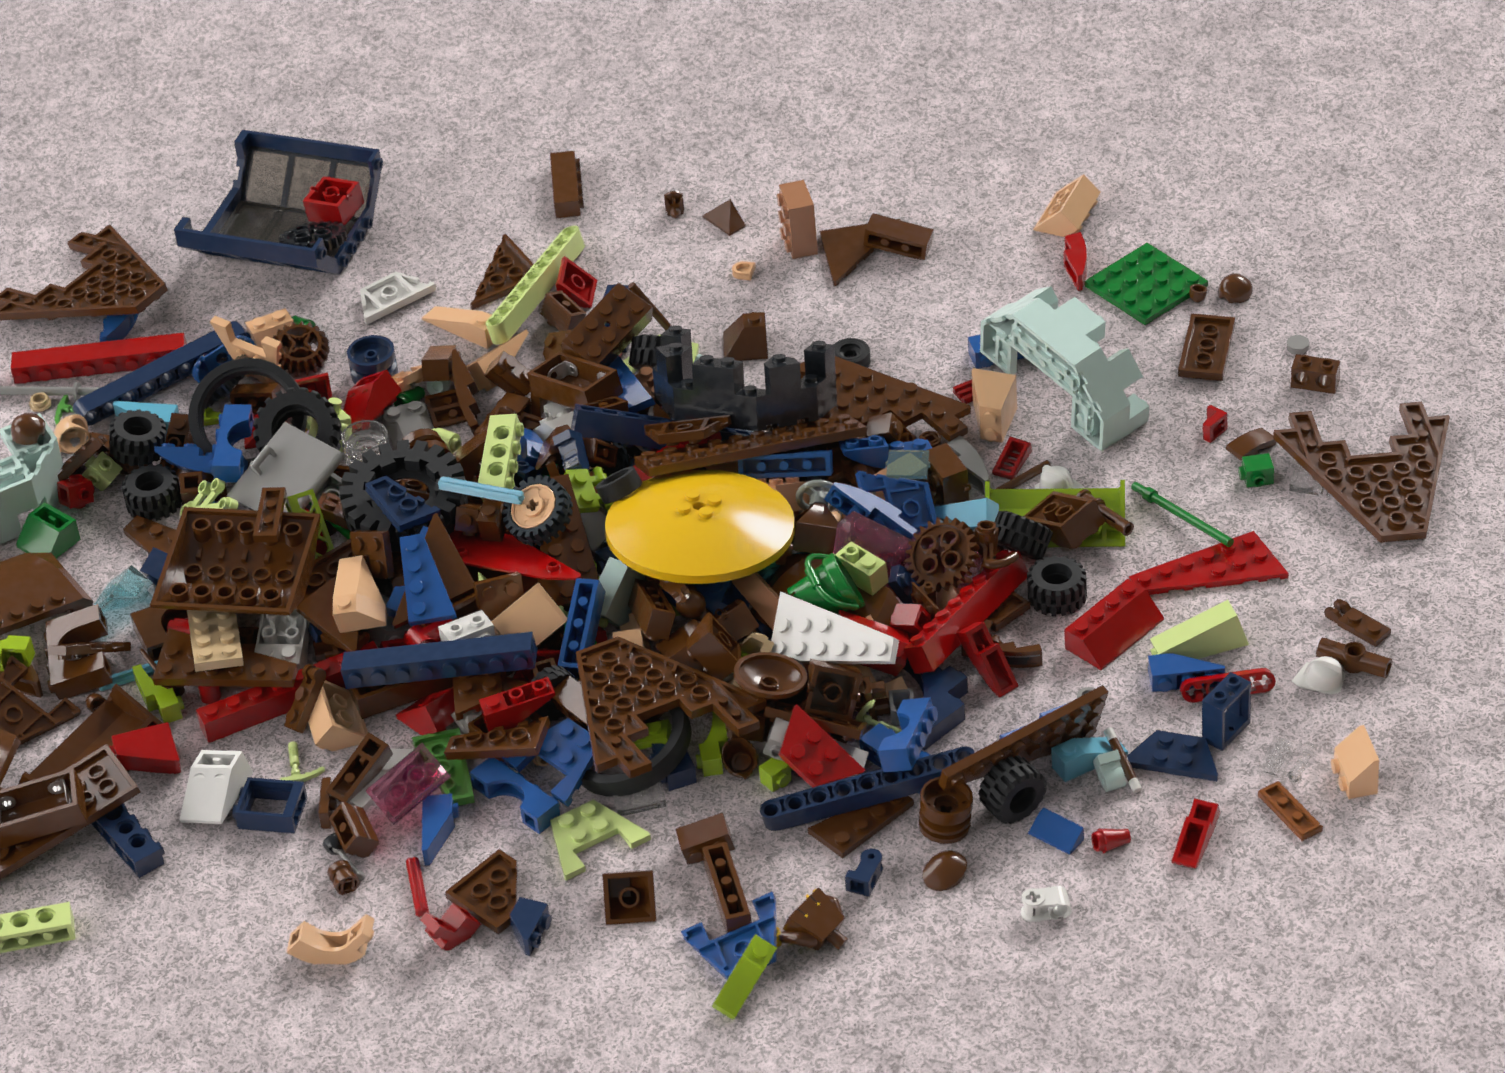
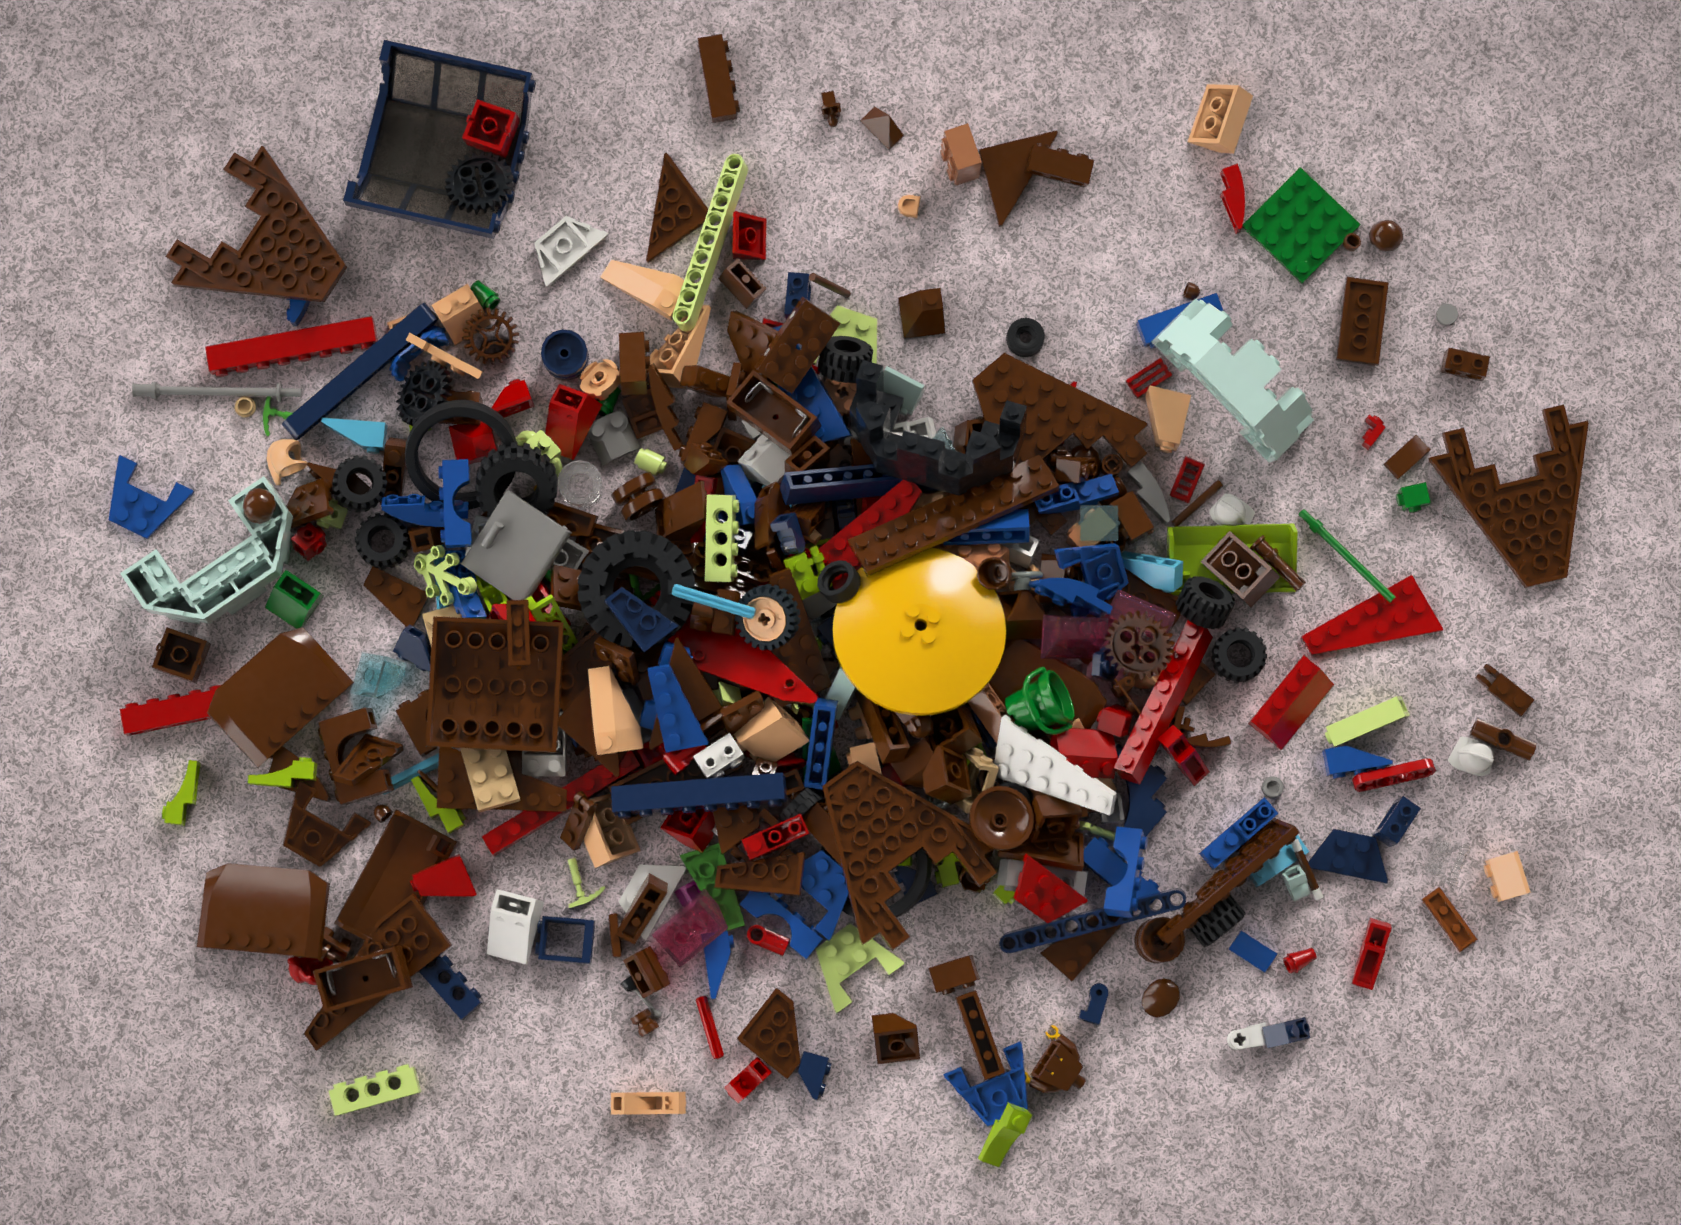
camera: 10 degrees left, 40 degrees up
(491, 808) = (770, 941): none -> red piece
(686, 430) = (892, 502): reddish brown wing -> none
(786, 479) = (994, 573): none -> reddish brown hair
(864, 568) = (1069, 669): yellowish green slope -> none
(988, 542) = (1179, 626): reddish brown piece -> none
(1089, 896) = (1286, 1032): none -> slope

